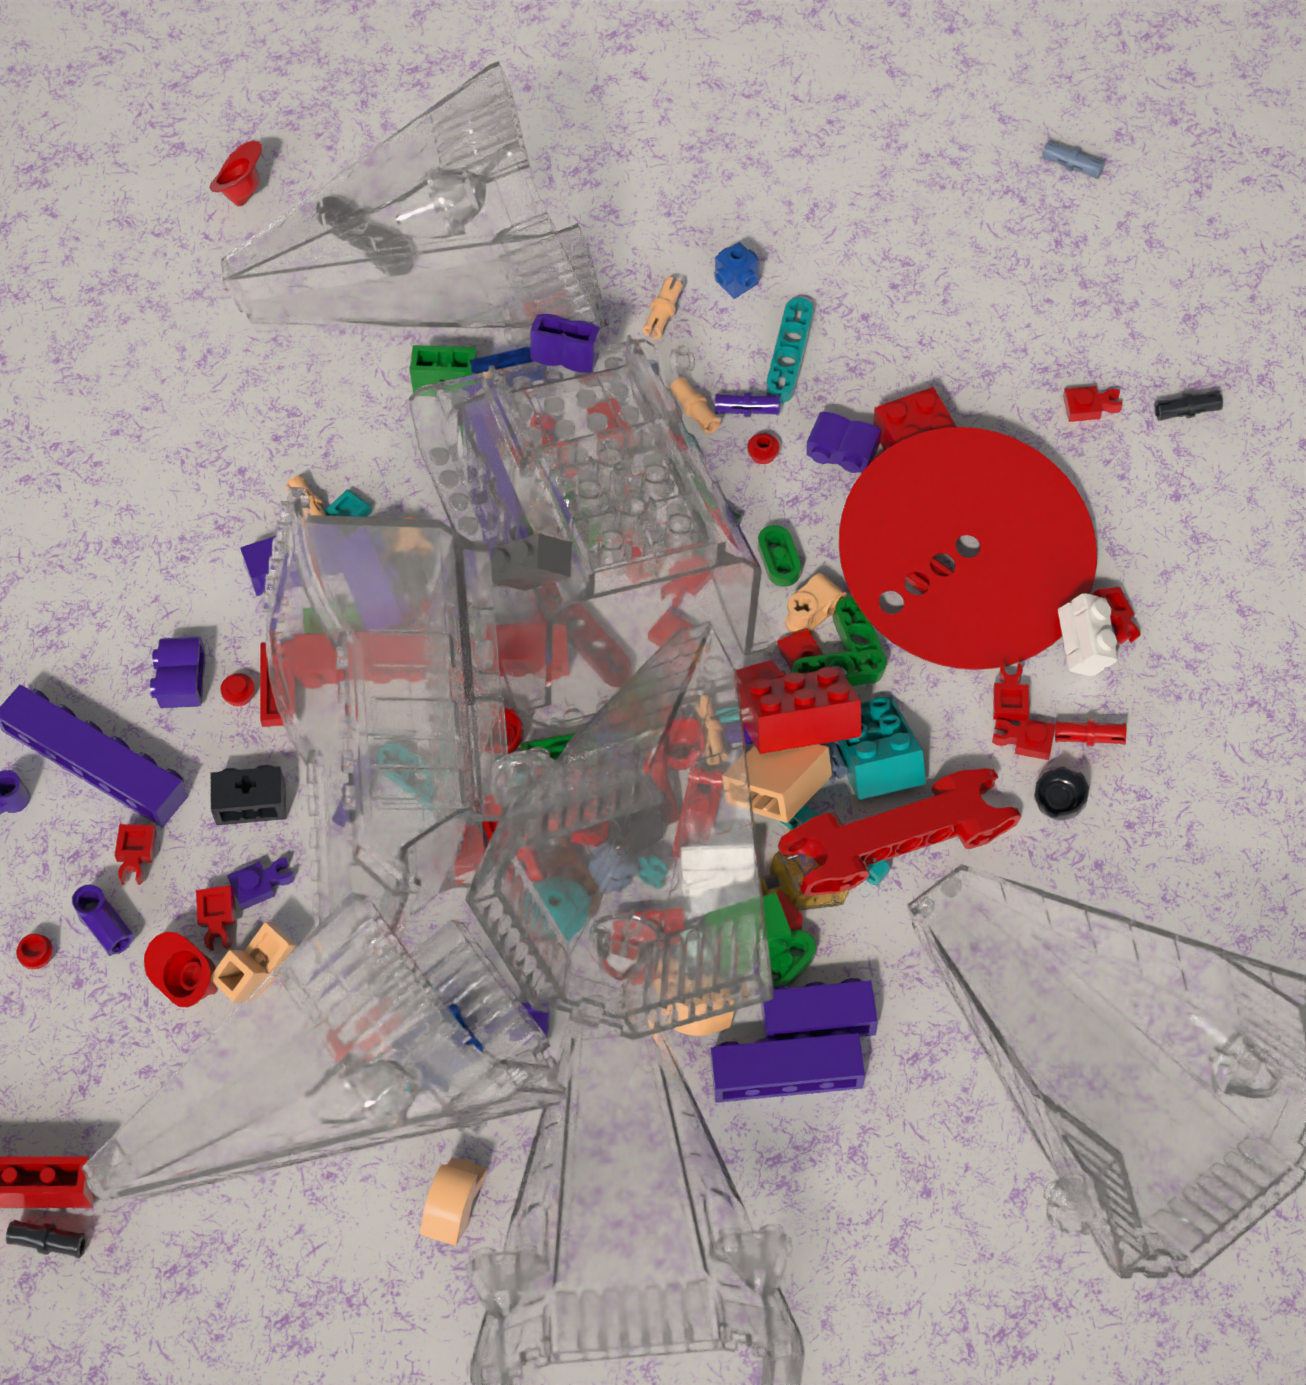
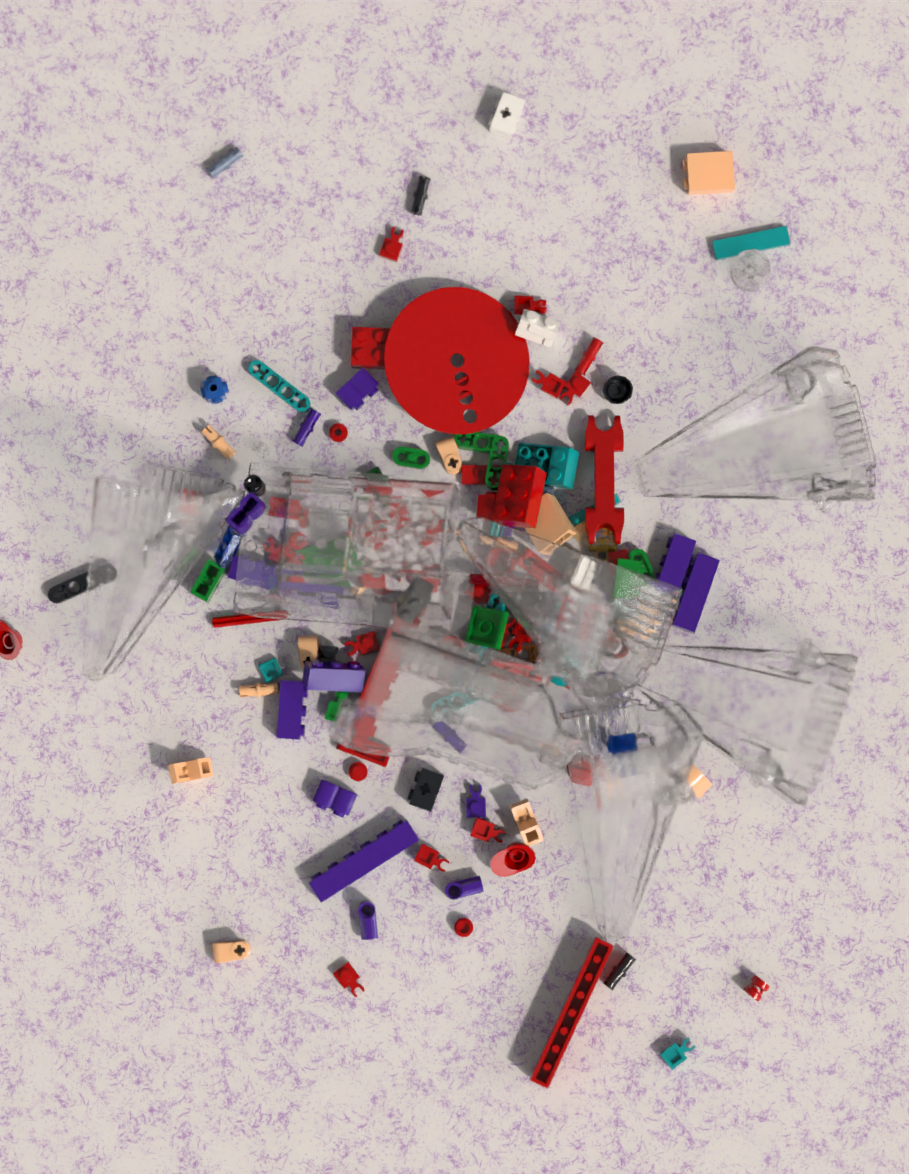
camera: 65 degrees left, 25 degrees up
(137, 462) = (190, 770): none -> light nougat brick
(406, 439) = (240, 619): none -> red axle
(613, 343) = (253, 482): none -> black wheel
(695, 405) = (293, 455): light nougat pin -> none

